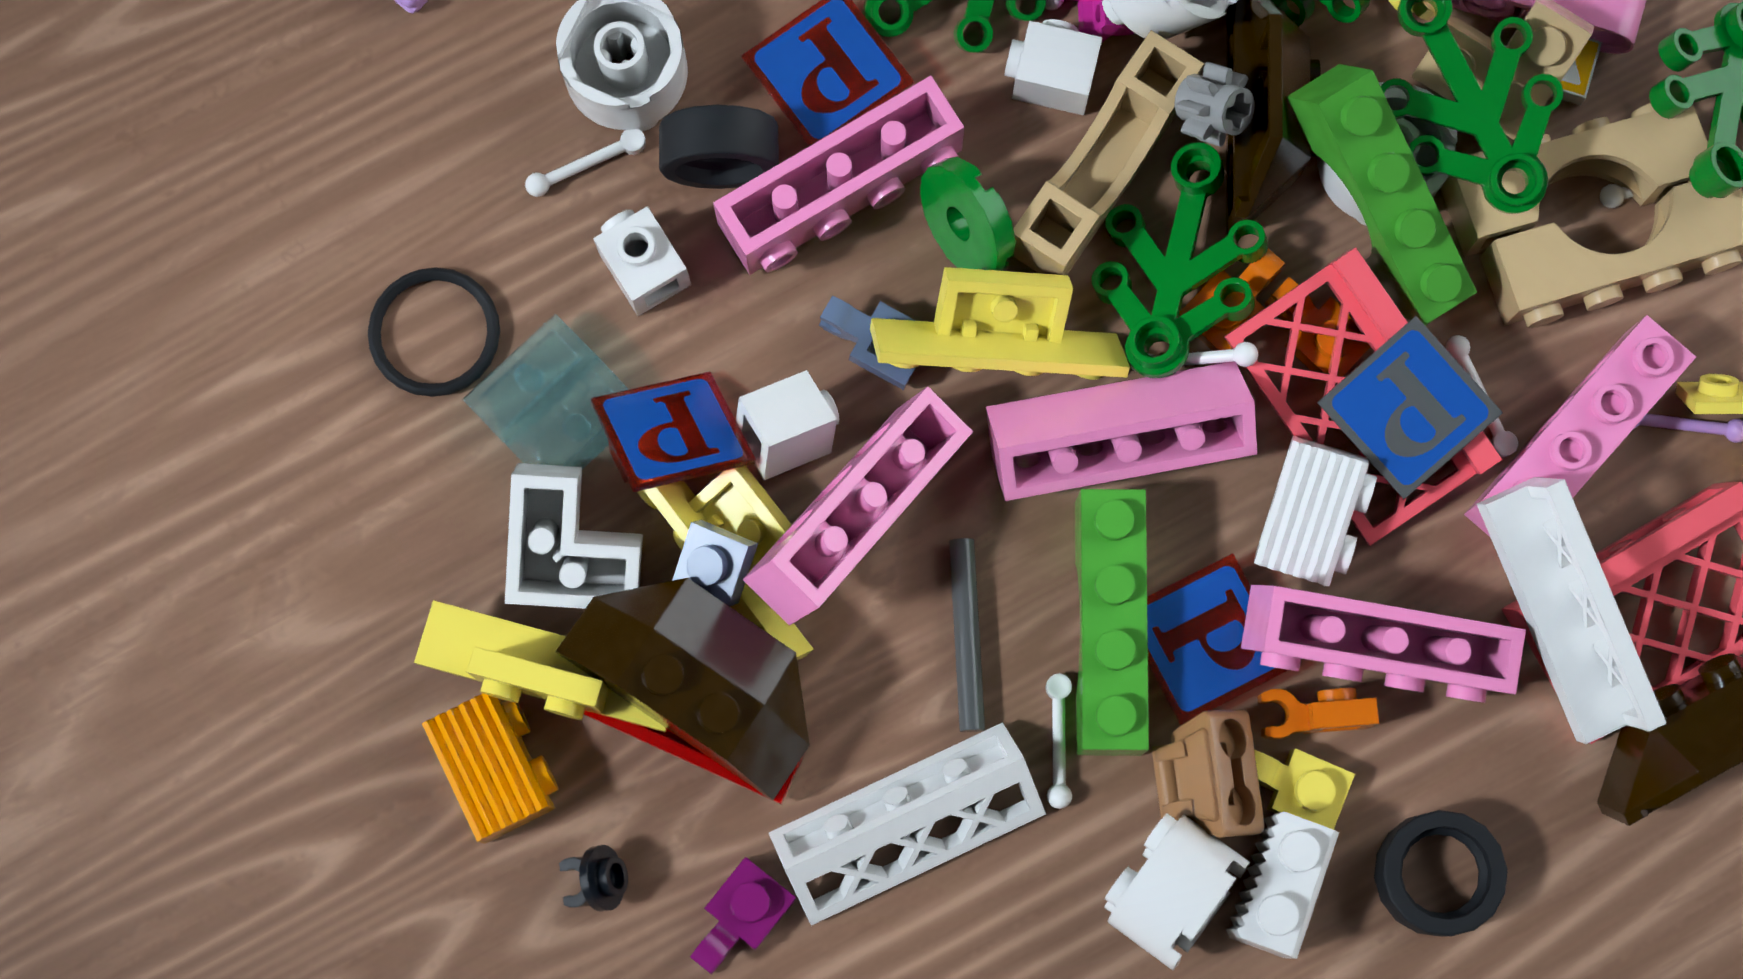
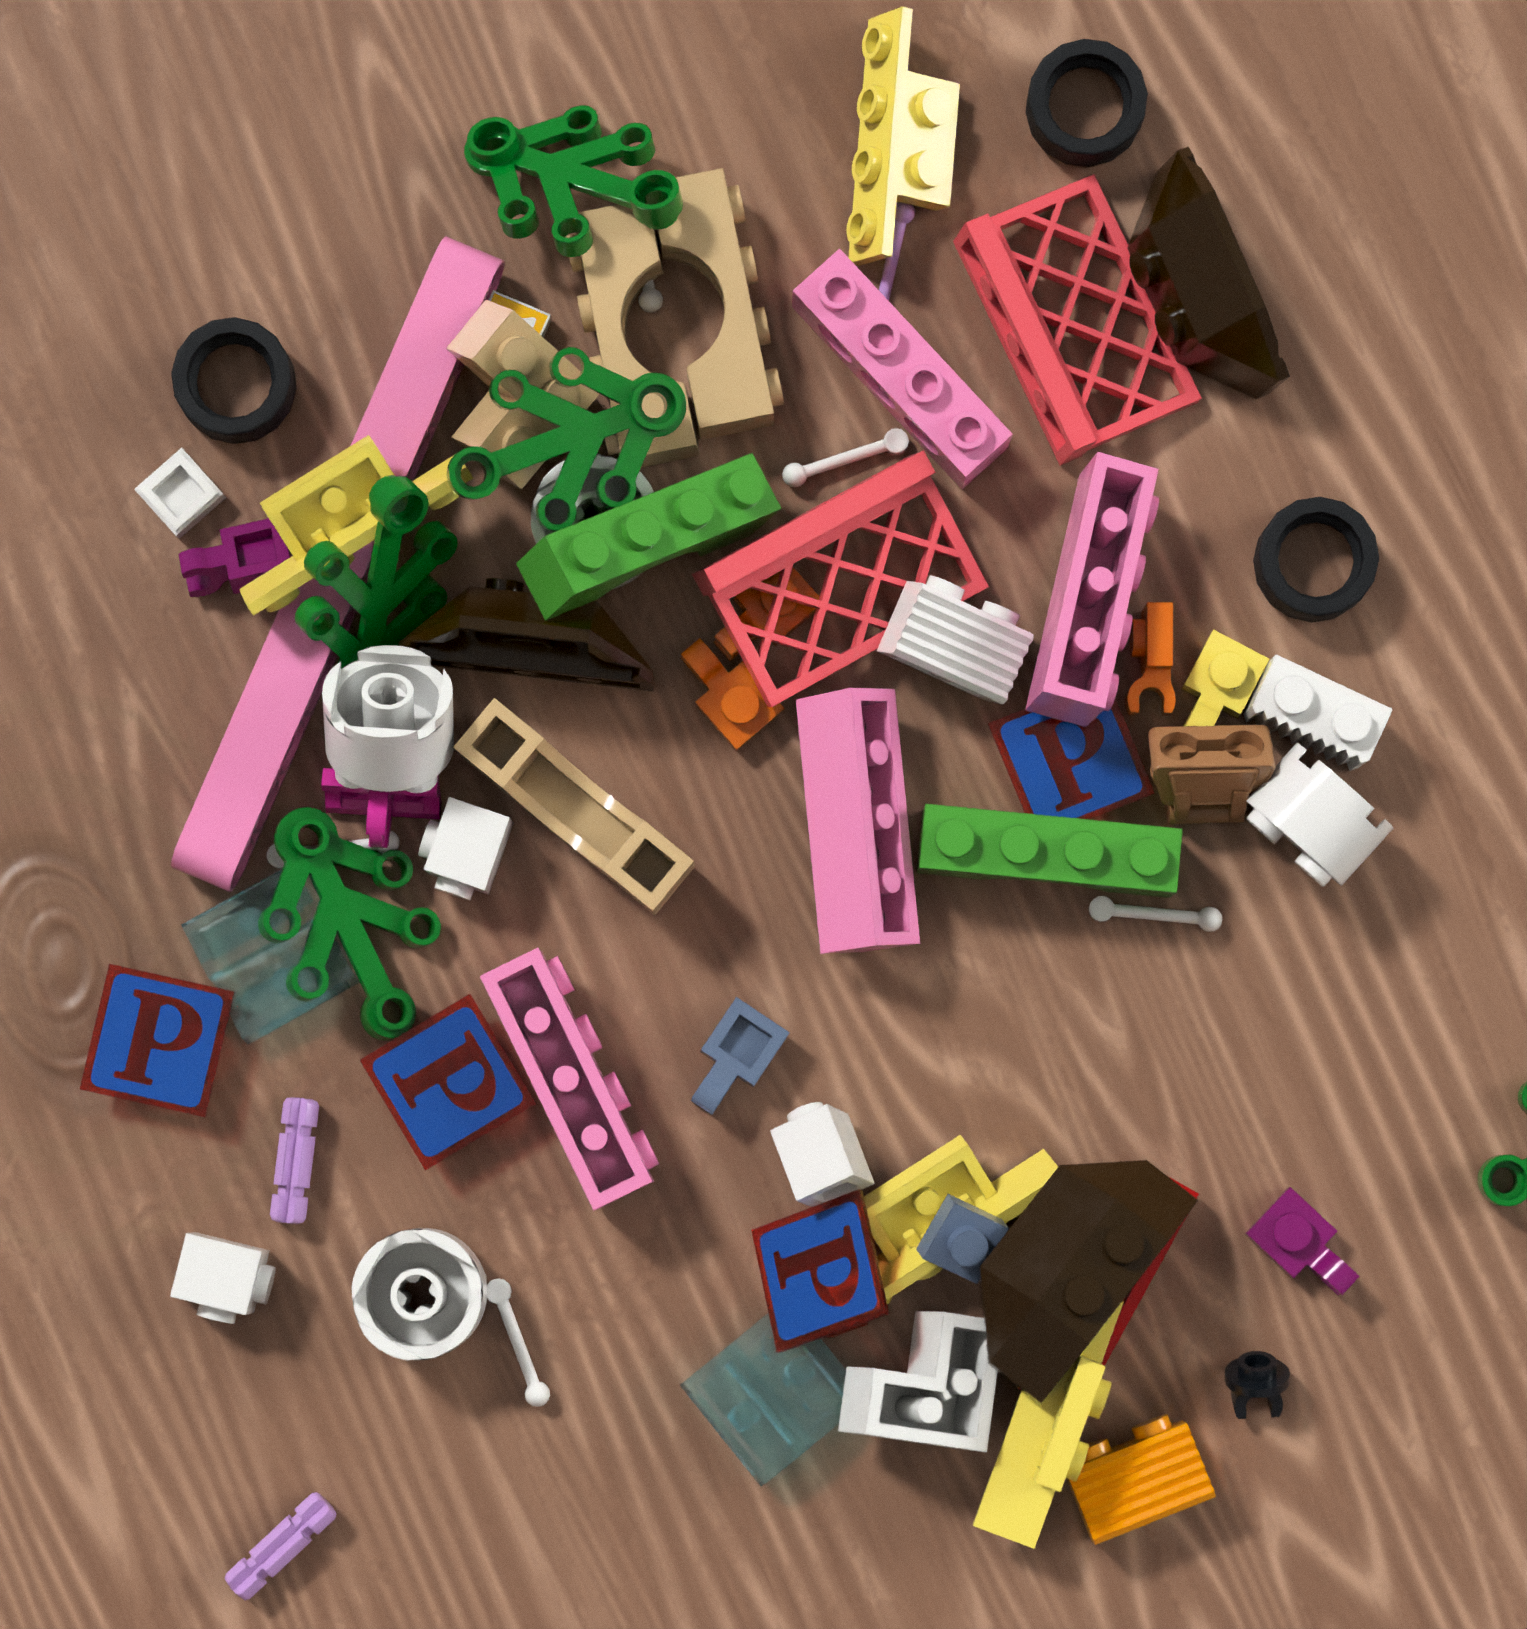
camera: 85 degrees left, 5 degrees up
(398, 287) = (622, 1512): black tyre -> none
(641, 259) = (631, 1291): white brick -> none
(717, 145) = (526, 1201): black tyre -> none
(857, 507) = (919, 1090): bright pink brick -> none
(903, 813) = (1217, 1075): white fence -> none
(965, 218) = (635, 953): green tile -> none
(967, 635) = (1043, 994): dark grey bar -> none
(1000, 325) = (744, 931): light yellow bracket -> none
(1178, 270) = (699, 747): green plant -> none
(1214, 104) = (541, 692): light grey gear -> none
(1243, 354) = (793, 690): white hinge -> none
(1409, 407) = (867, 535): piece -> none
(1570, 609) = (1081, 408): white fence -> none

